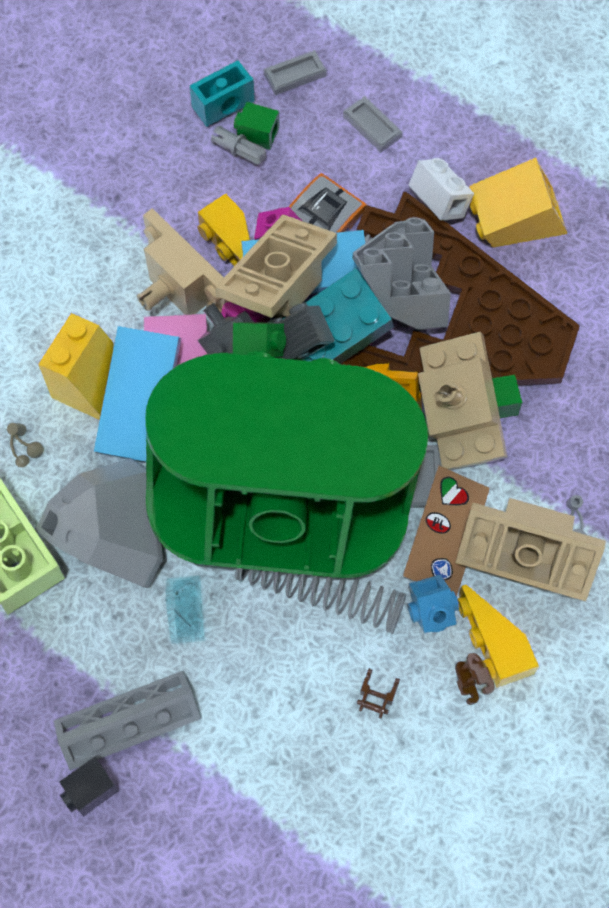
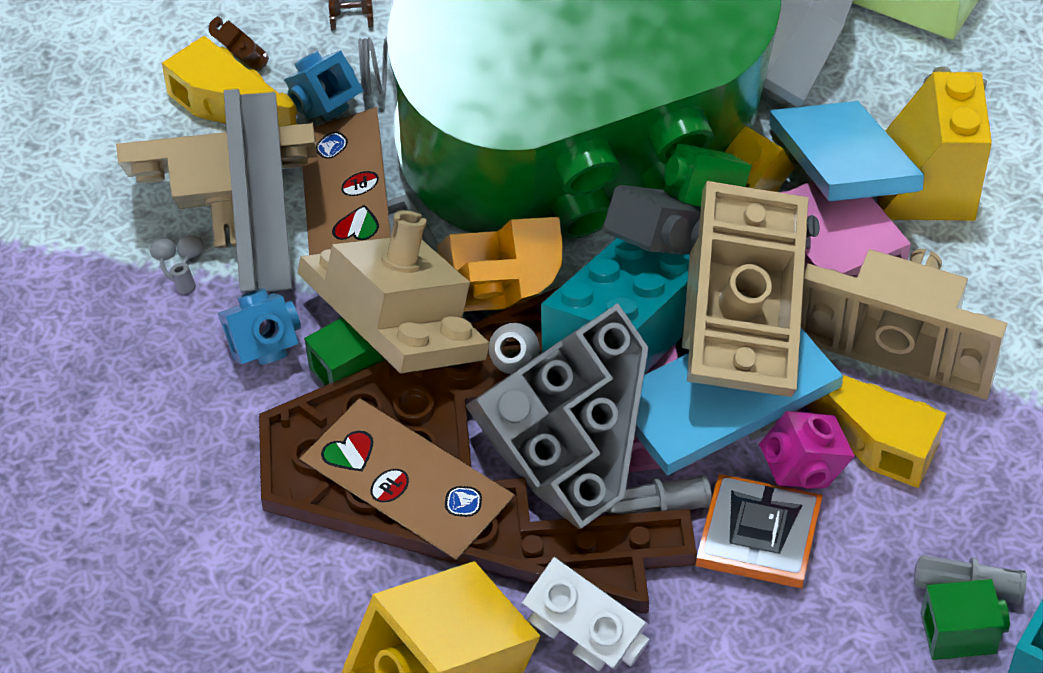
camera: 155 degrees right, 15 degrees down
(409, 335) = (529, 347): none -> white cone
(497, 305) = (407, 478): none -> medium nougat sticker
(521, 490) = (257, 191): none -> light grey fence
(543, 430) = (243, 323): none -> dark azure brick

